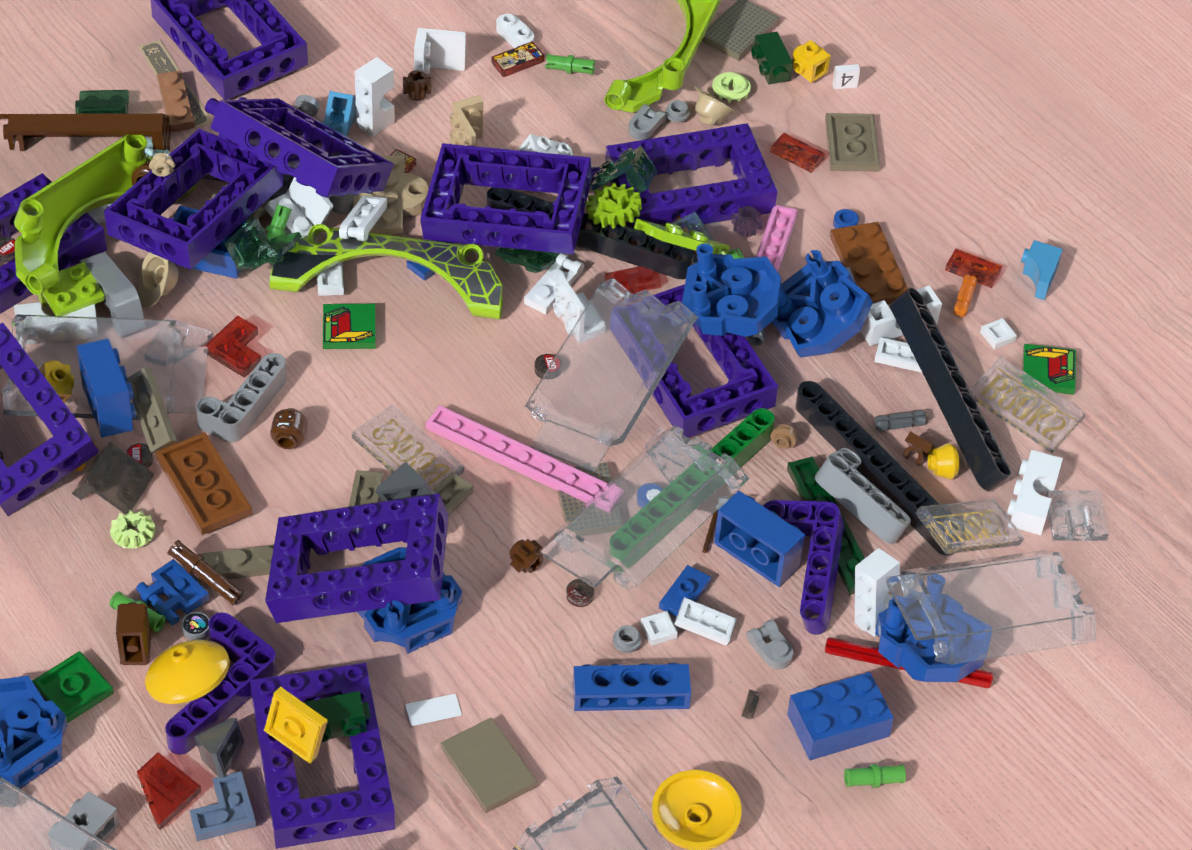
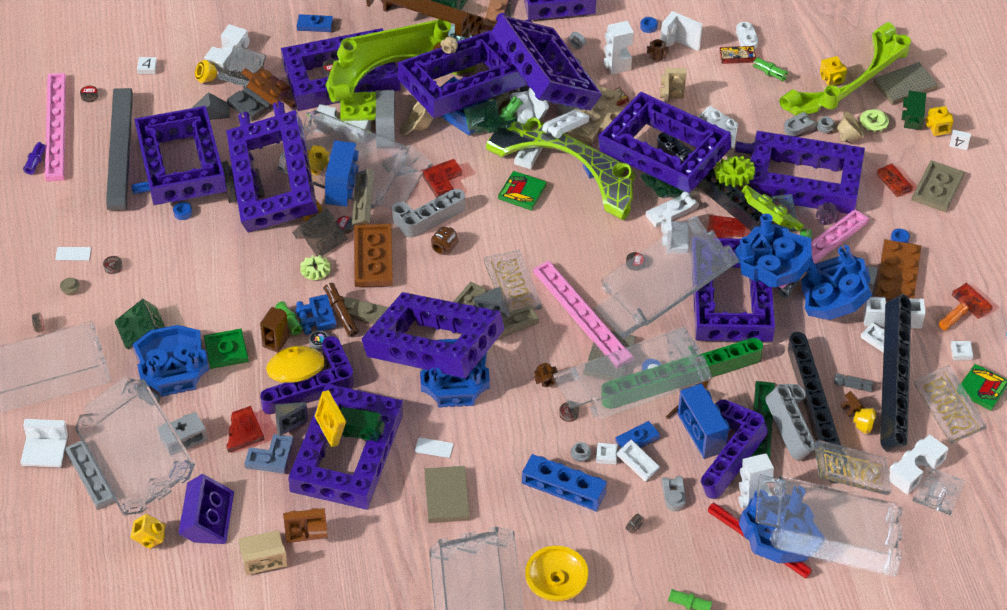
camera: 30 degrees right, 0 degrees up
(340, 112) = (592, 53): dark azure arch -> none
(386, 54) = (648, 24): none -> blue tile
(634, 163) = (761, 150): clear green bracket -> none
(649, 41) = (833, 71): none -> yellow brick
(784, 436) = (764, 363): medium nougat plate -> none
(840, 716) = (689, 554): blue brick -> none

